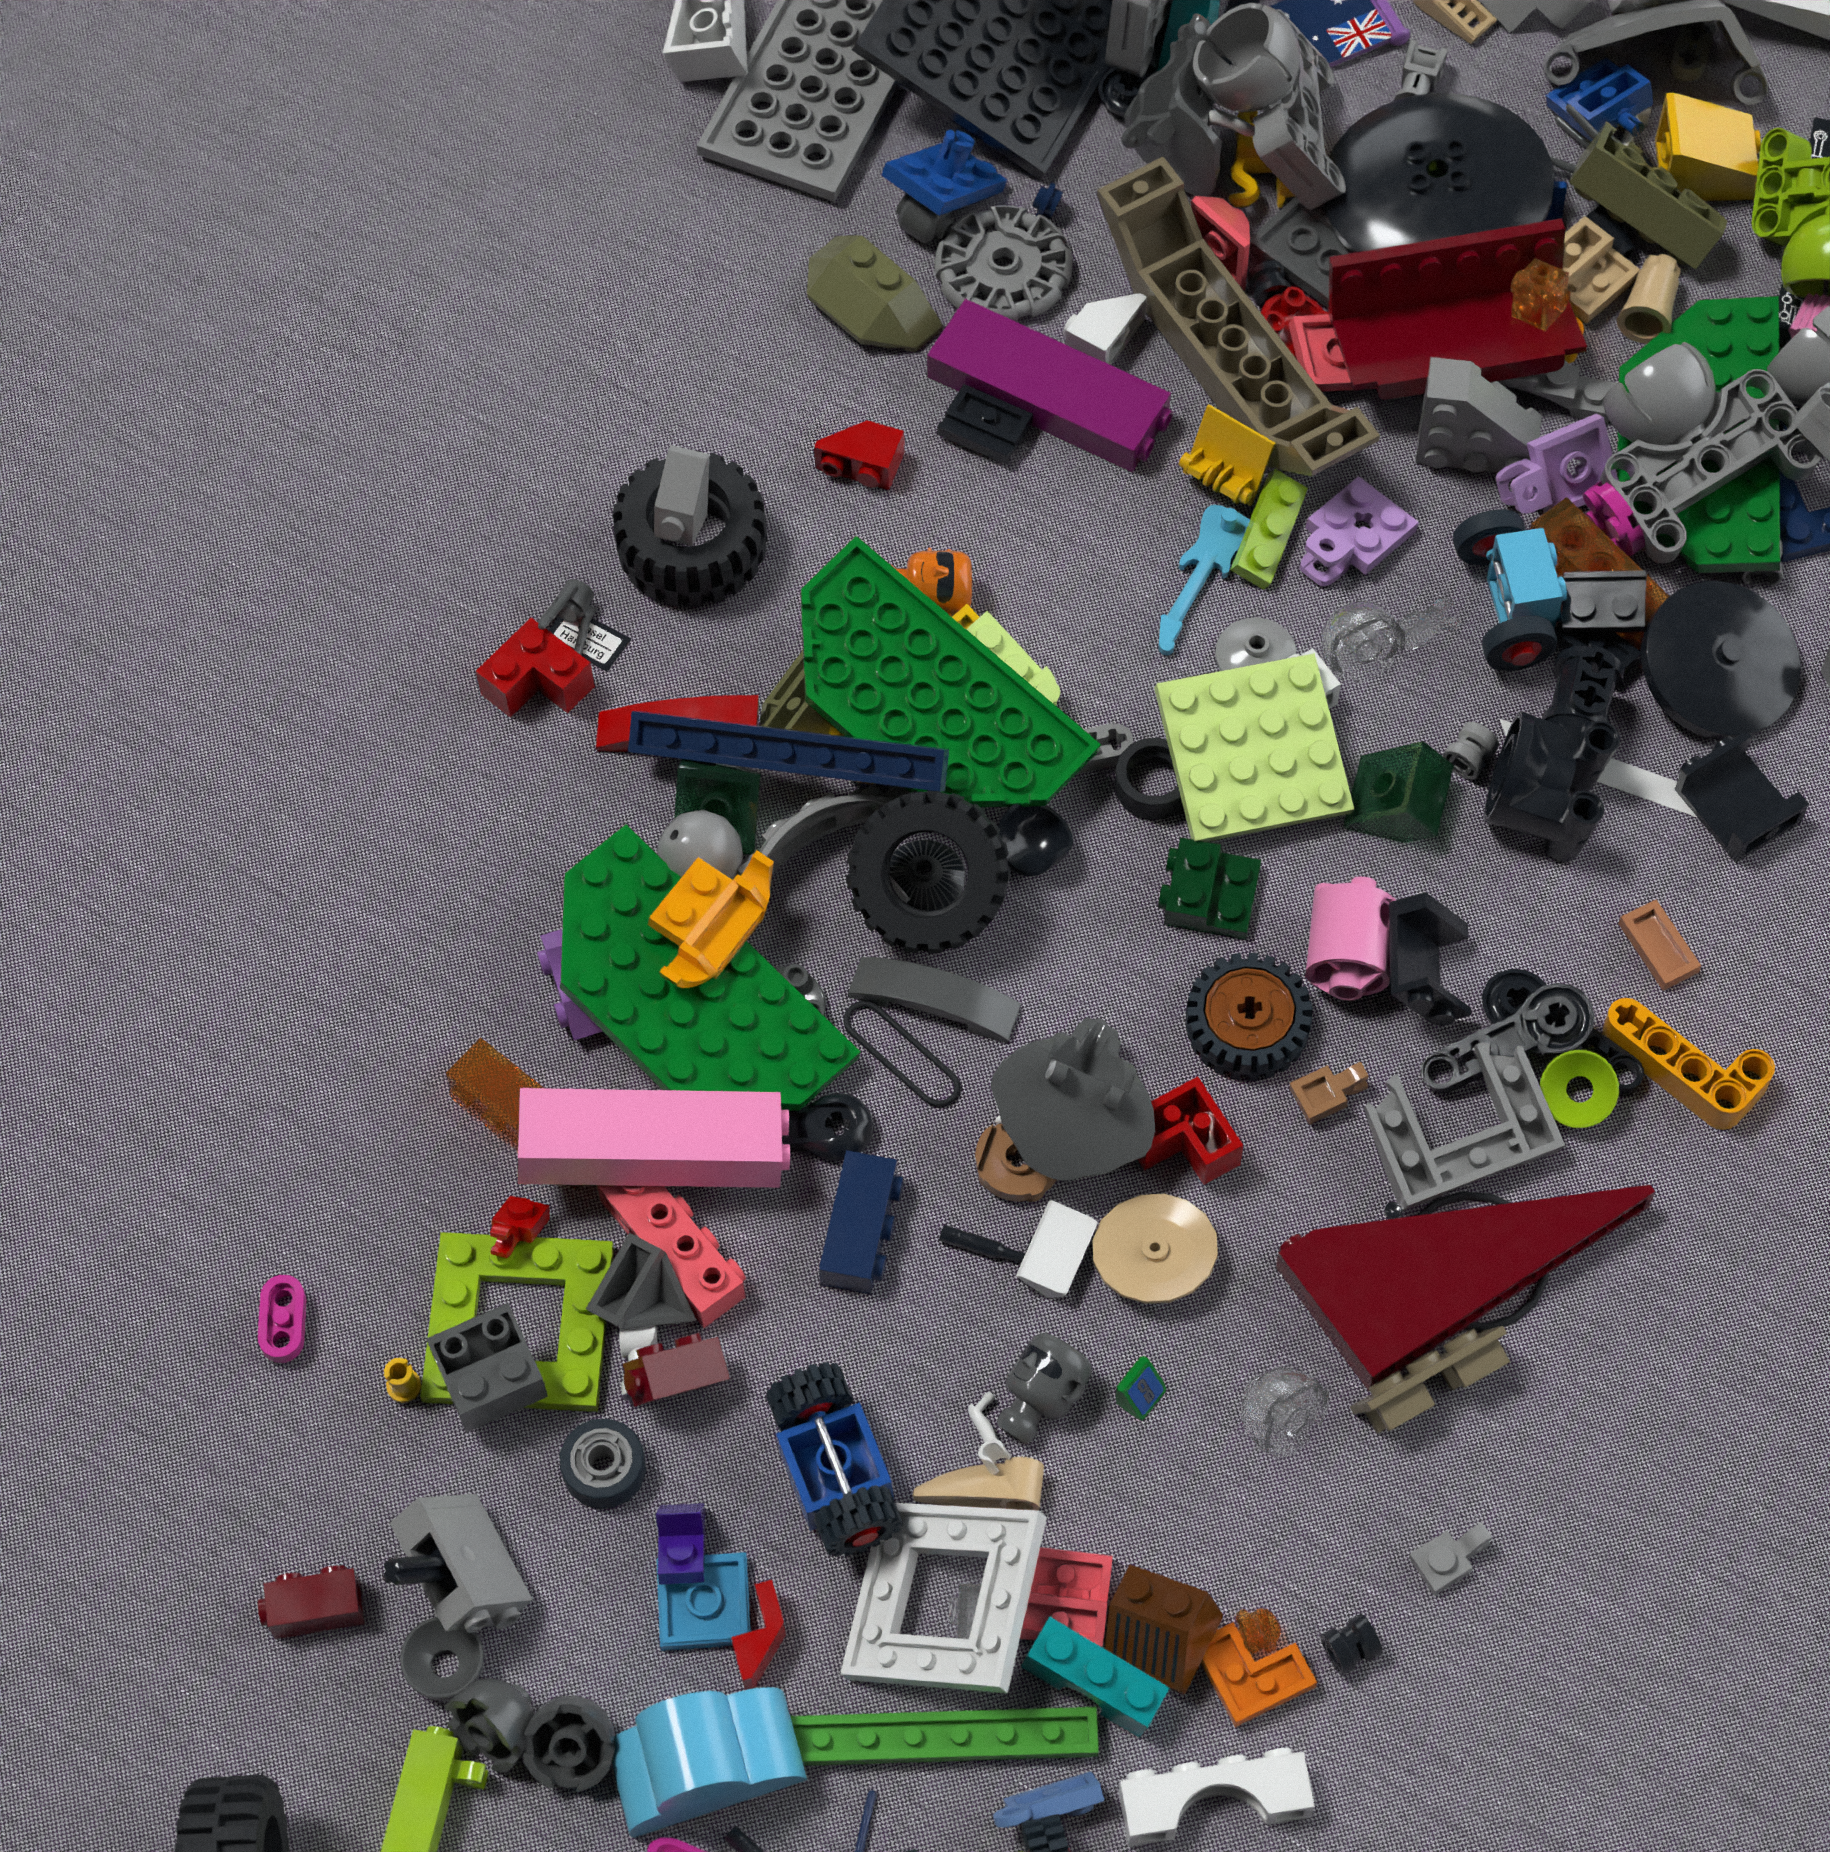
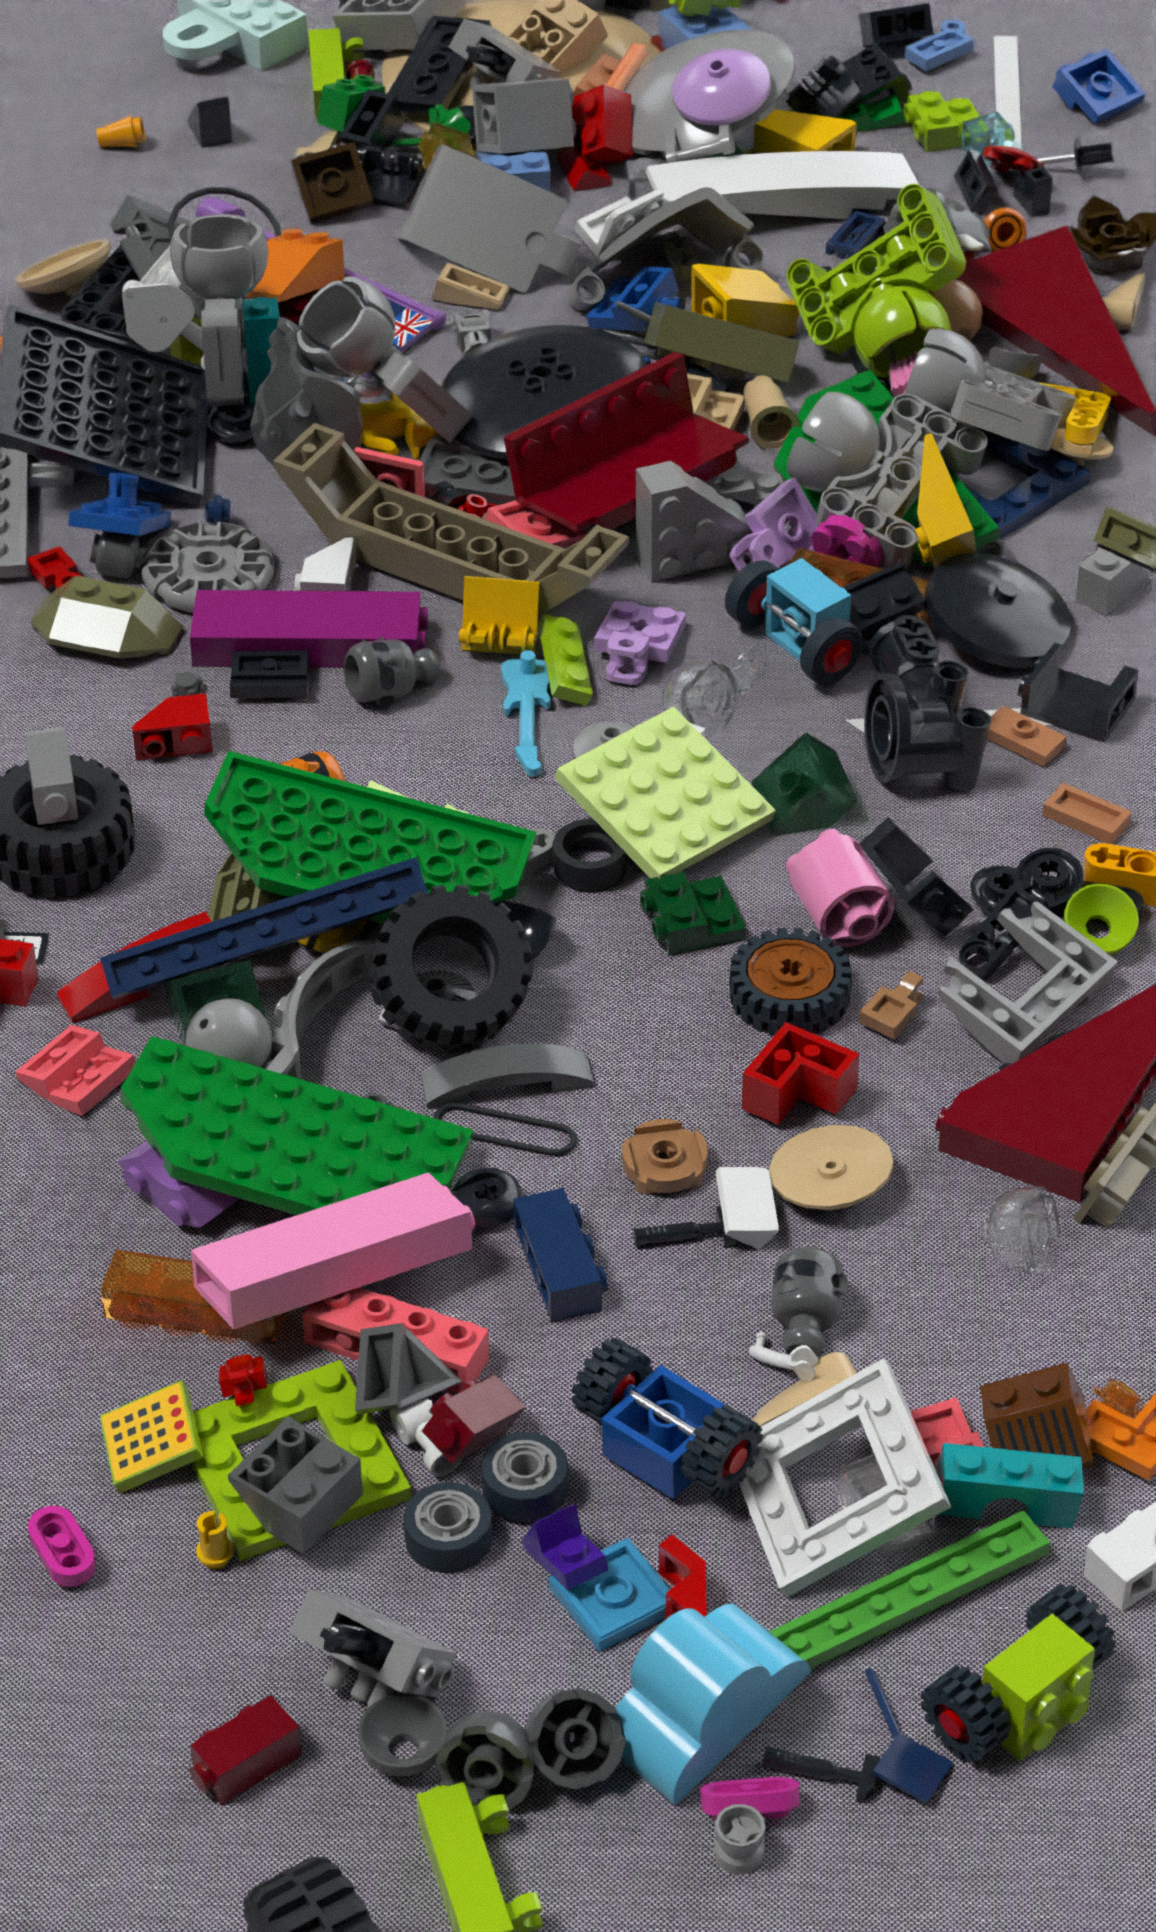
camera: 30 degrees left, 20 degrees down
(411, 1244) = (151, 1436): none -> tile
(568, 809) = (76, 1070): none -> coral slope
(687, 1423) = (524, 1476): none -> black wheel
(711, 918) = (280, 1064): light orange plate -> none
(861, 208) = (52, 567): none -> red plate
(906, 400) = (186, 684): none -> dark grey piece
(1067, 1796) = (1015, 1612): medium blue hinge -> none
(1074, 1103) = (699, 1080): dark grey animal -> none
(1089, 471) = (387, 670): none -> dark grey piece
(1140, 1389) = (889, 1274): slope -> none
(1471, 749) = (843, 735): light grey wheel -> none
(1540, 294) = (687, 414): clear orange brick -> none
(1656, 821) = (1025, 736): none -> nougat plate
(1714, 532) = (941, 516): none -> yellow slope

